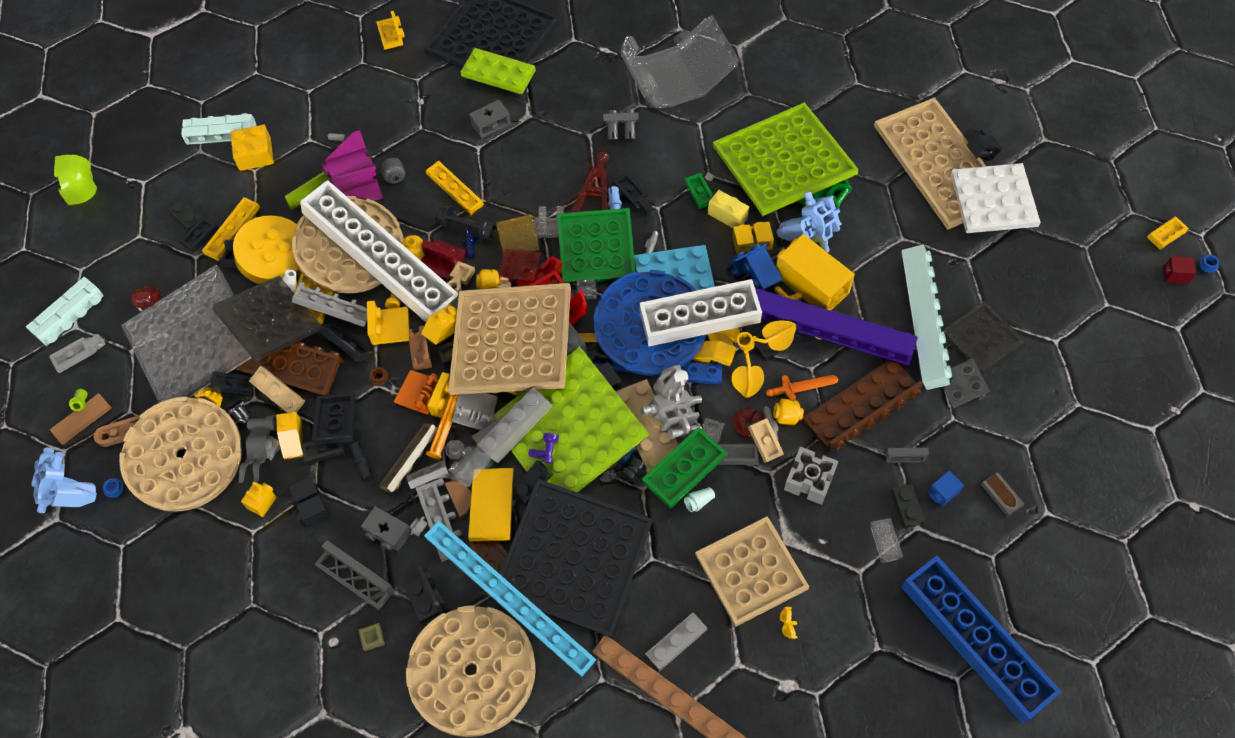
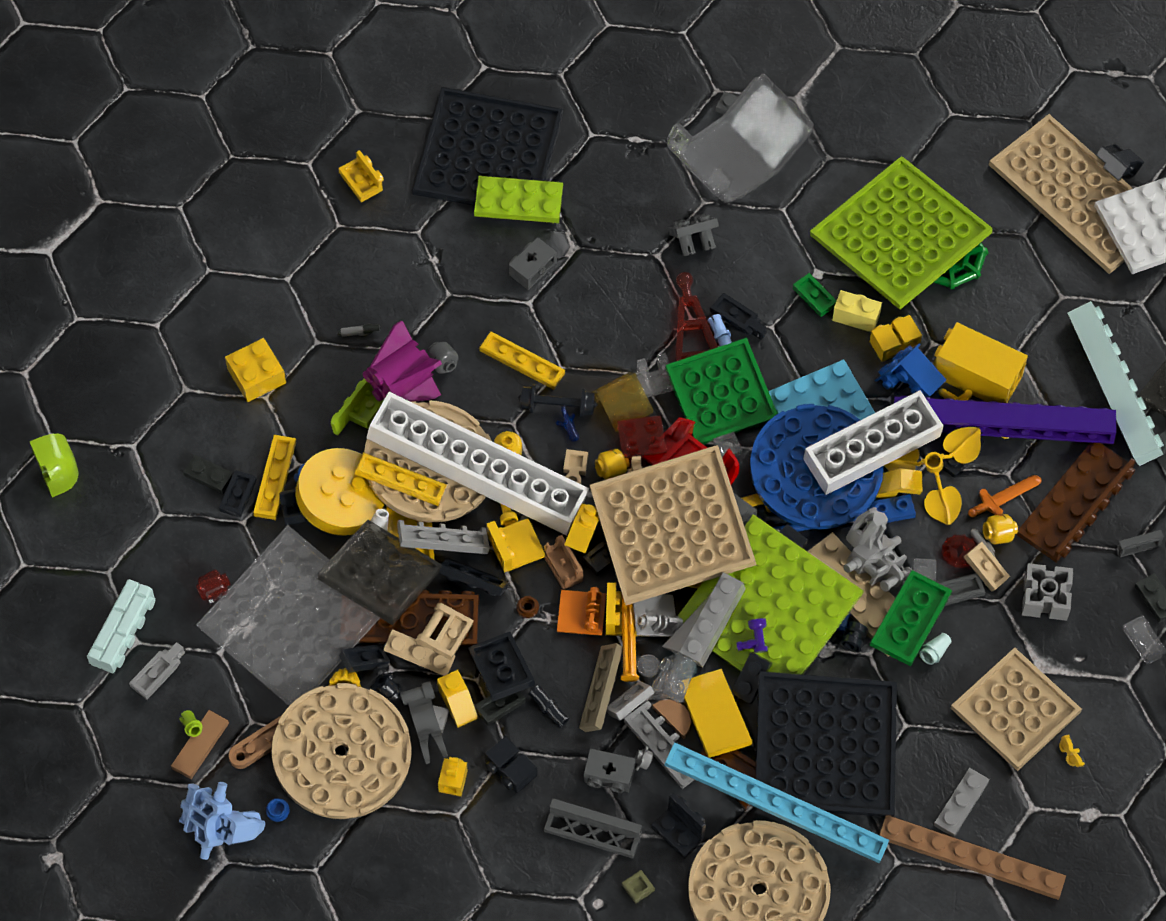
camera: 20 degrees left, 0 degrees up
(214, 128) = (198, 356): light aqua brick -> none
(302, 382) = (451, 634): none -> tan plate
(315, 251) = (400, 479): none -> yellow tile
(441, 257) = (545, 448): dark red bracket -> none
(651, 242) = (779, 372): light grey piece -> none
(817, 221) = (963, 305): light blue piece -> none

